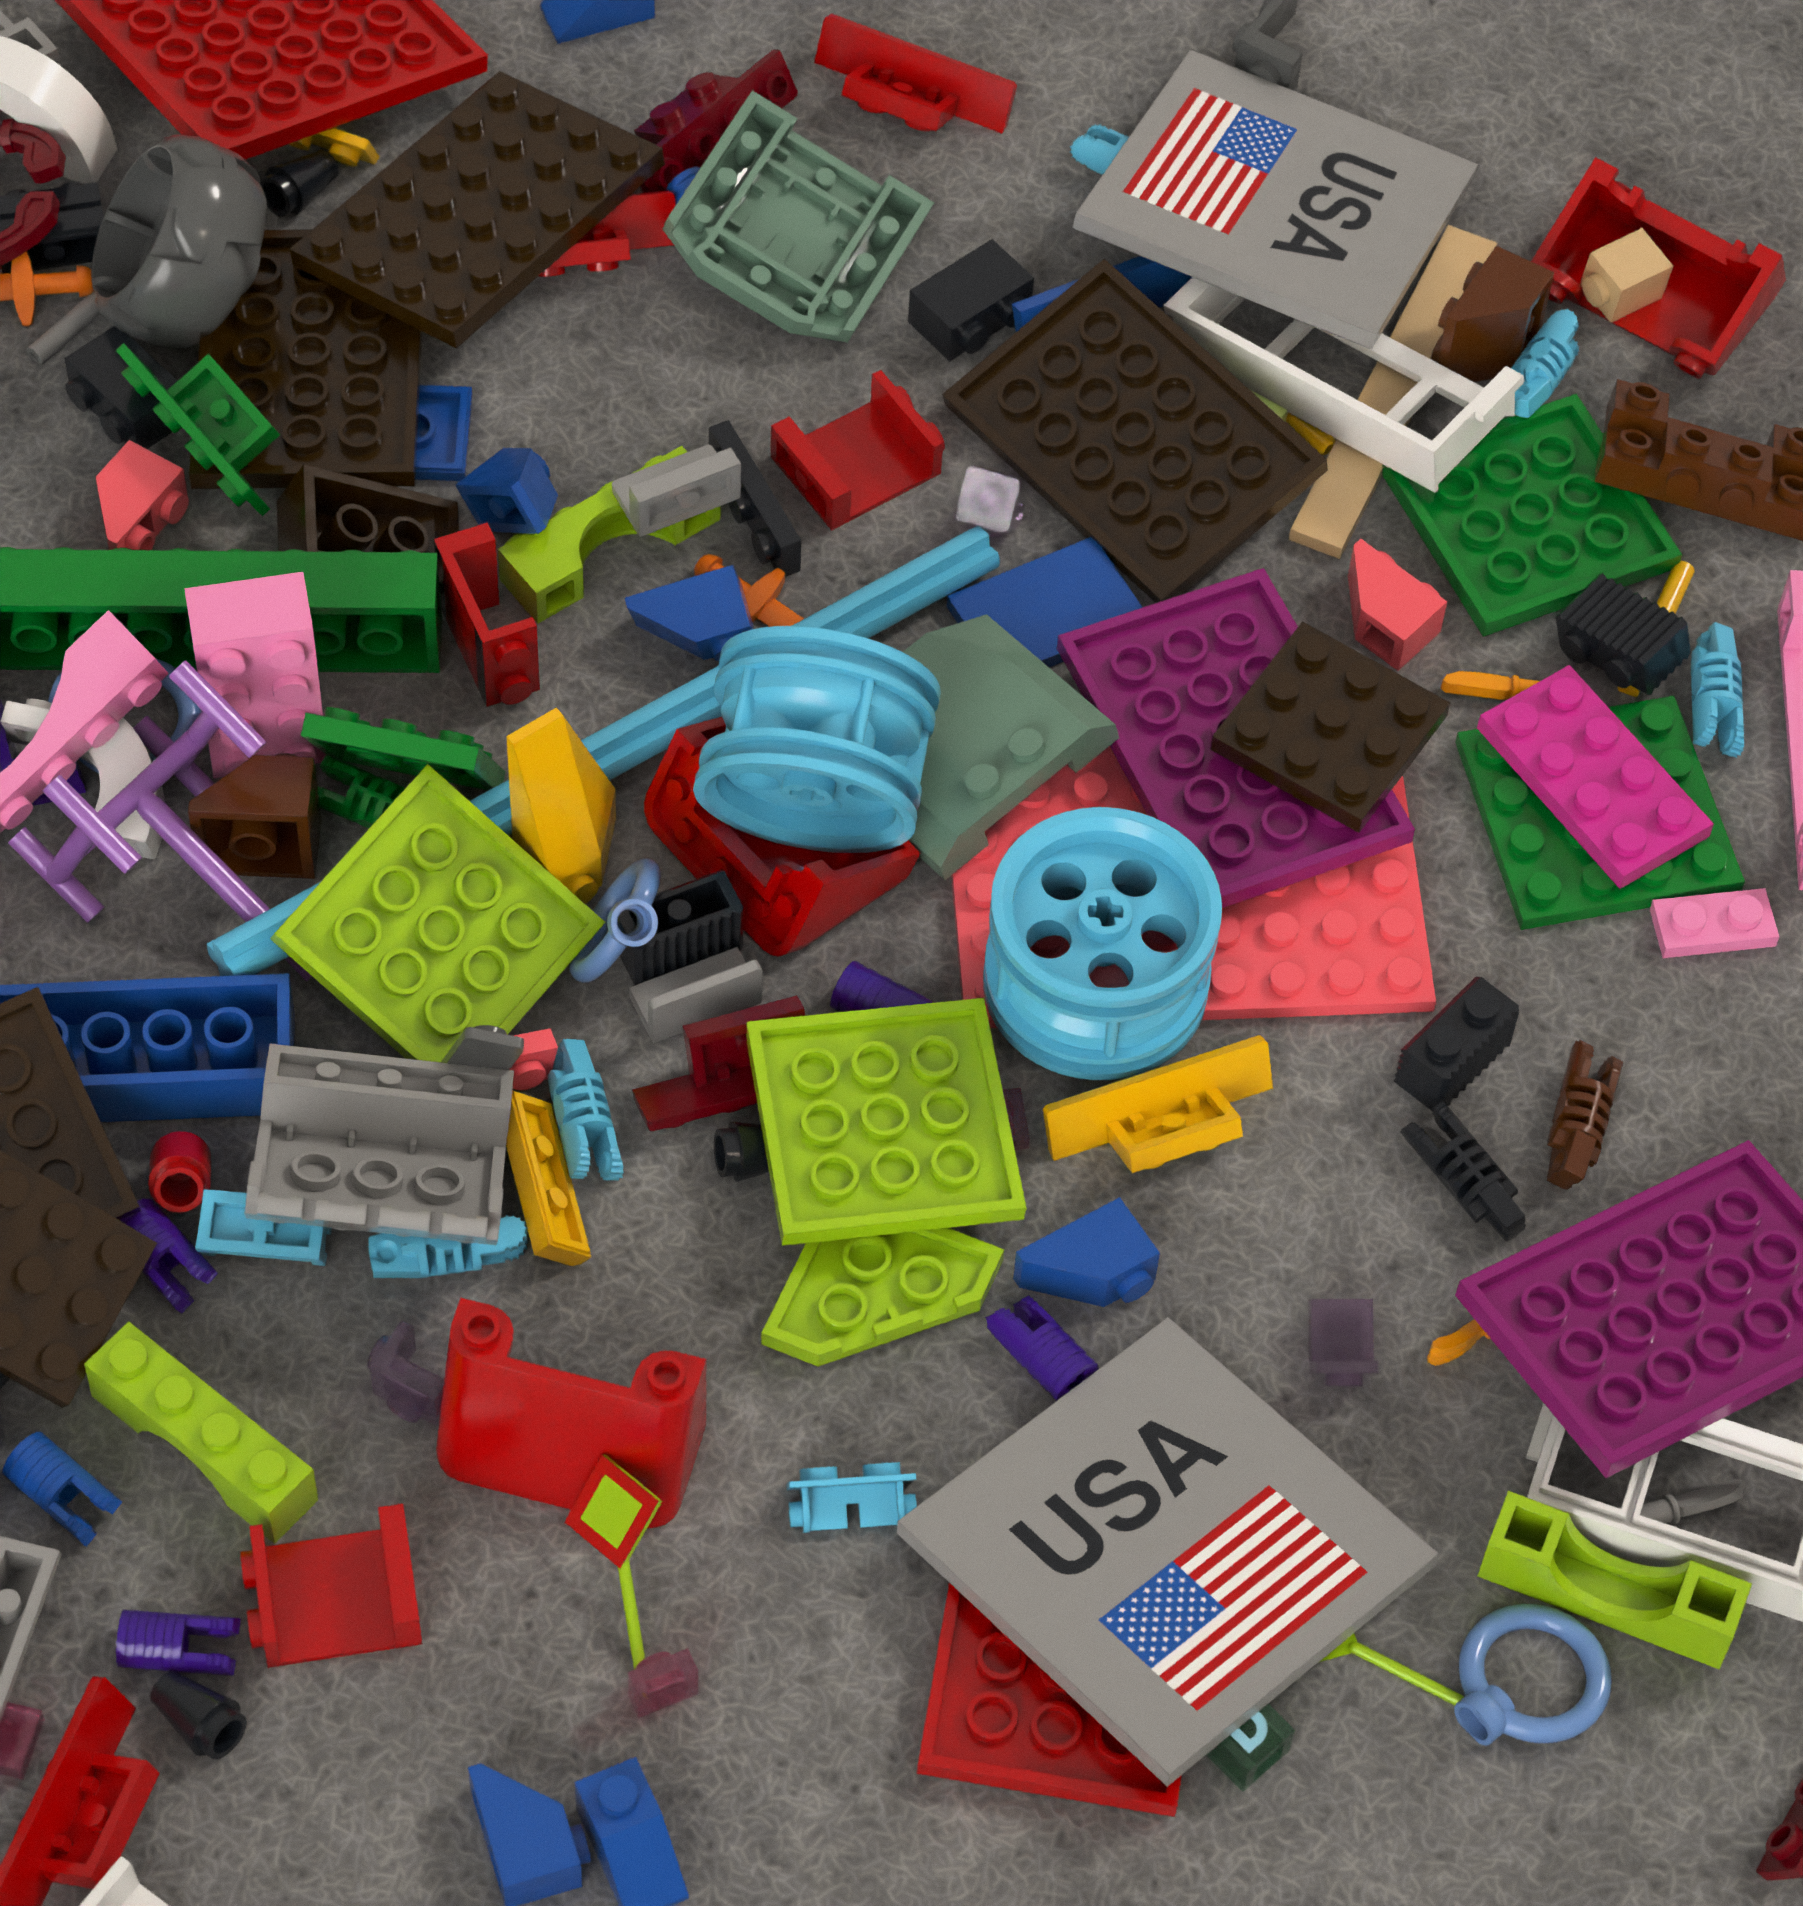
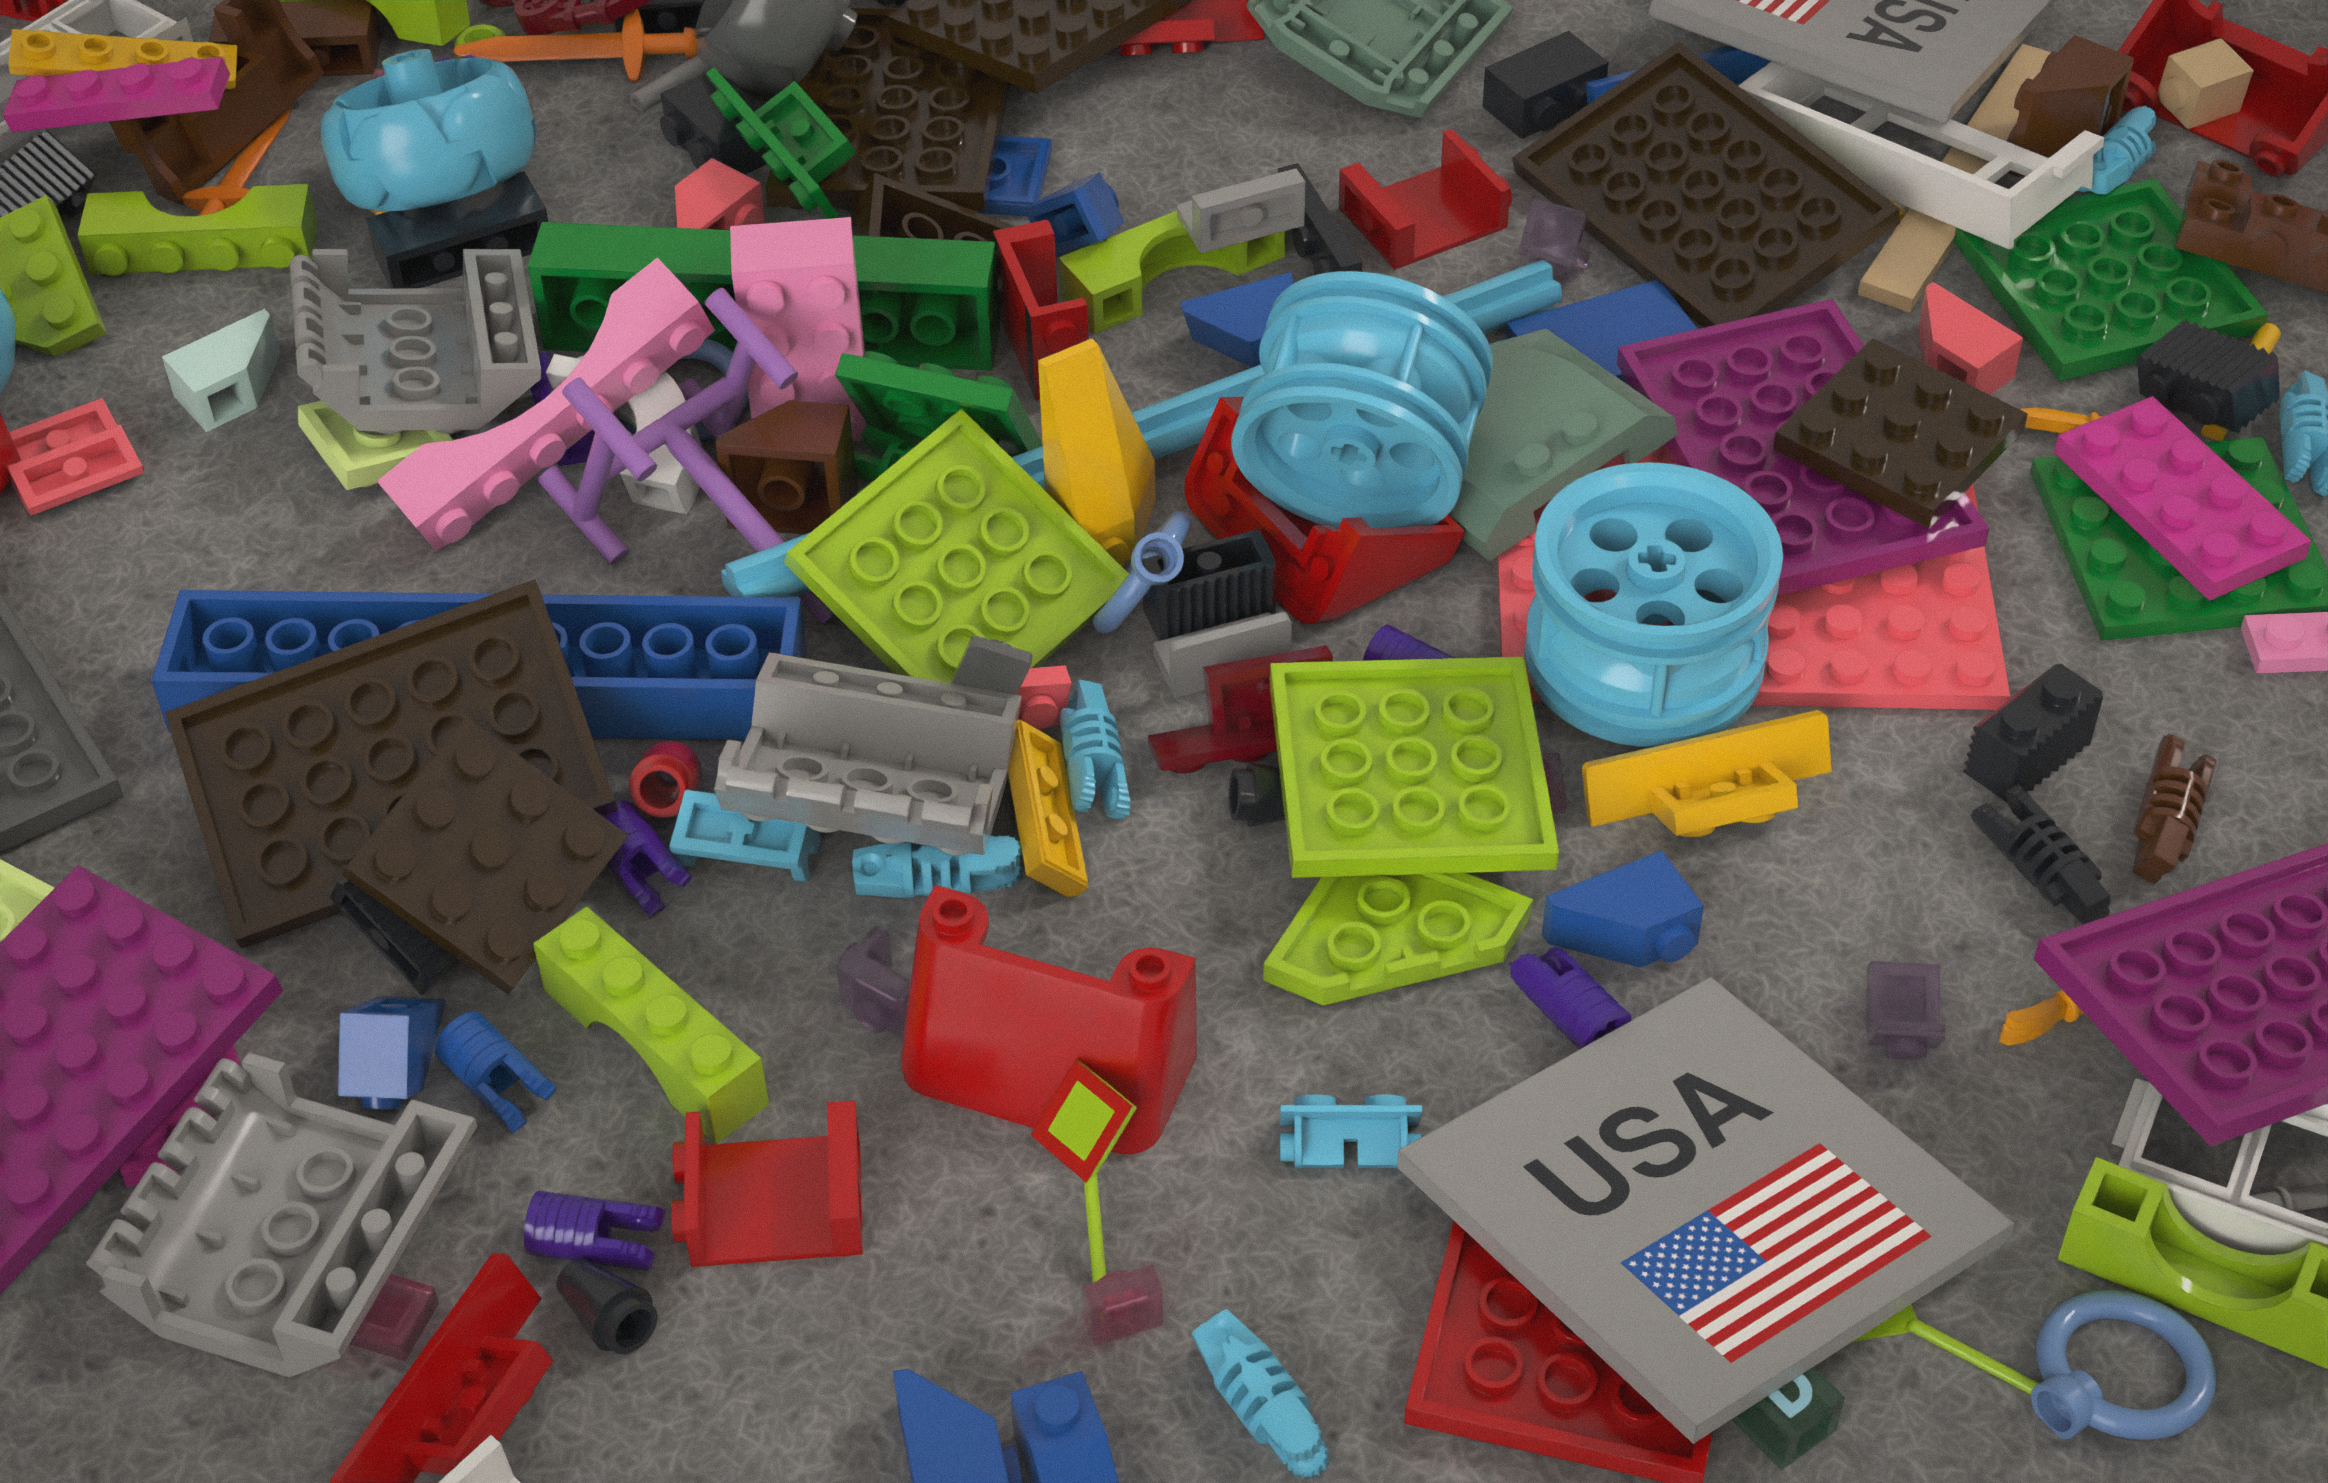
camera: 10 degrees right, 10 degrees down
(790, 1755) = (1261, 1393): none -> medium azure hinge

